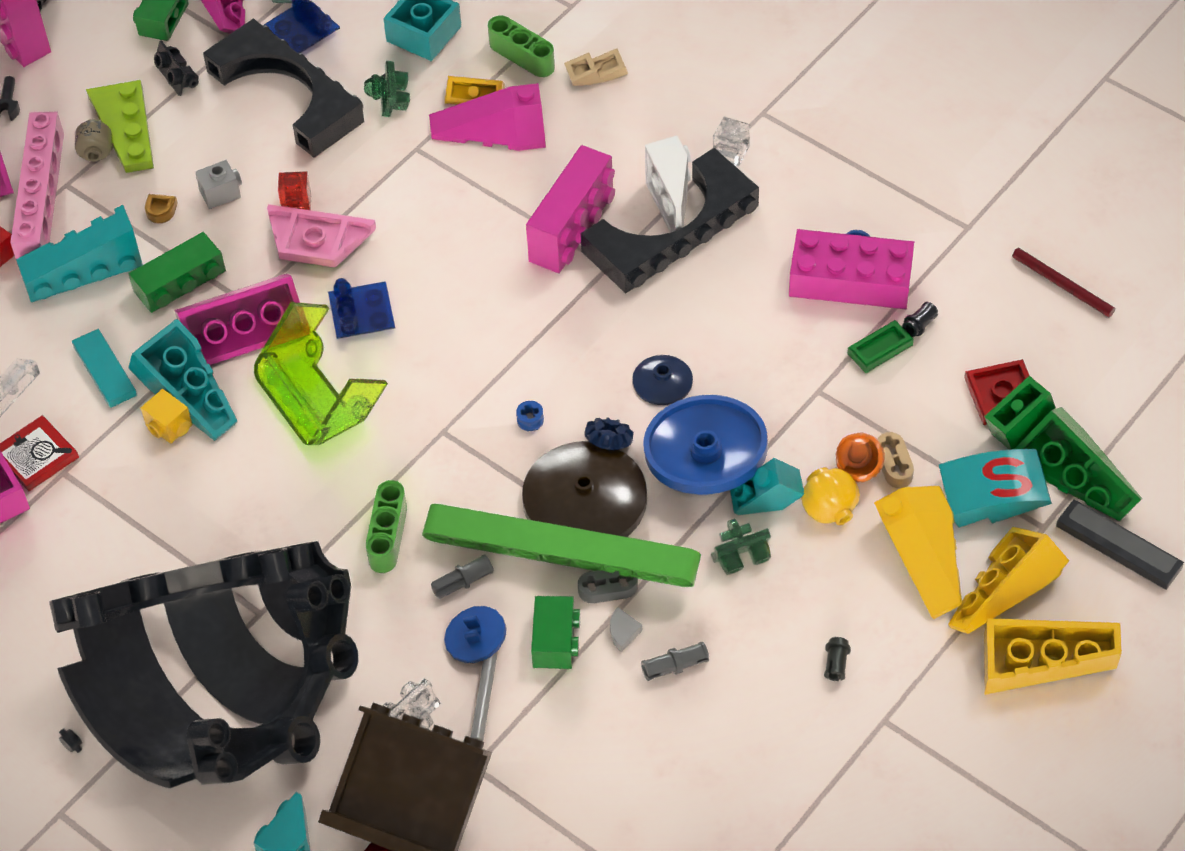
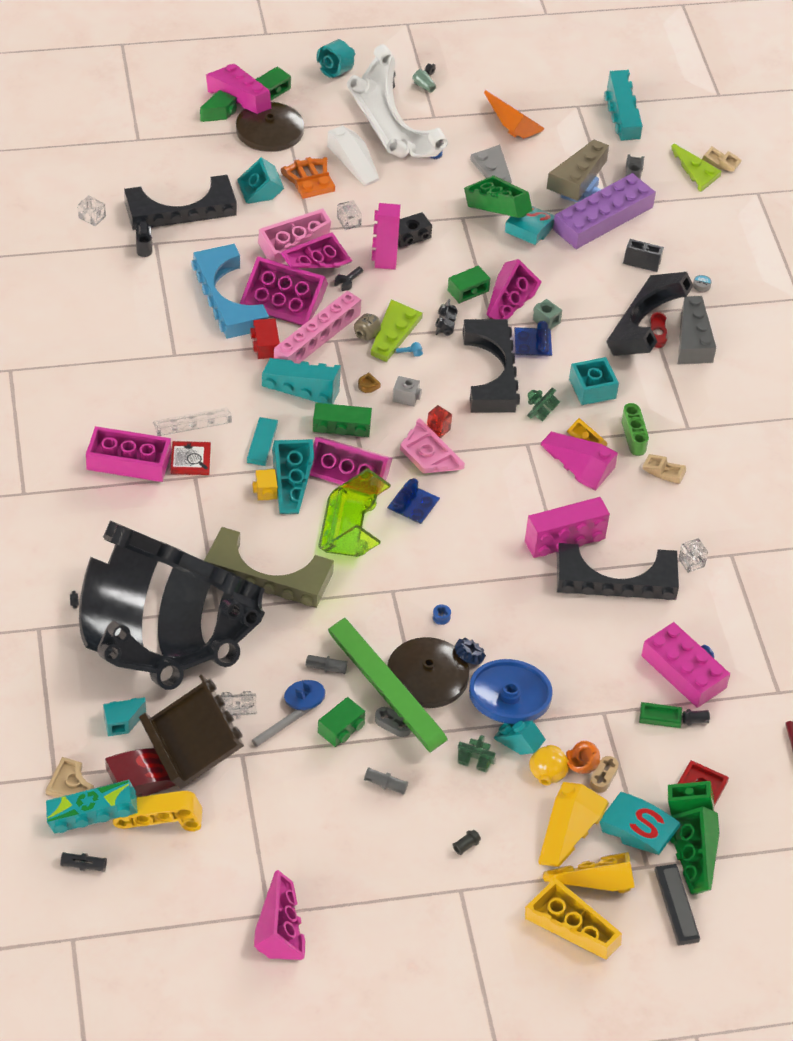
camera: 35 degrees right, 5 degrees down
(174, 126) = (415, 348): none -> dark azure hand
(339, 506) = (301, 586): none -> olive arch
(386, 538) = (315, 613): bright green beam -> none
(623, 629) = (378, 747): light grey tile -> none
(662, 388) = (529, 647): dark blue dish -> none
(668, 179) = (635, 550): white slope -> none

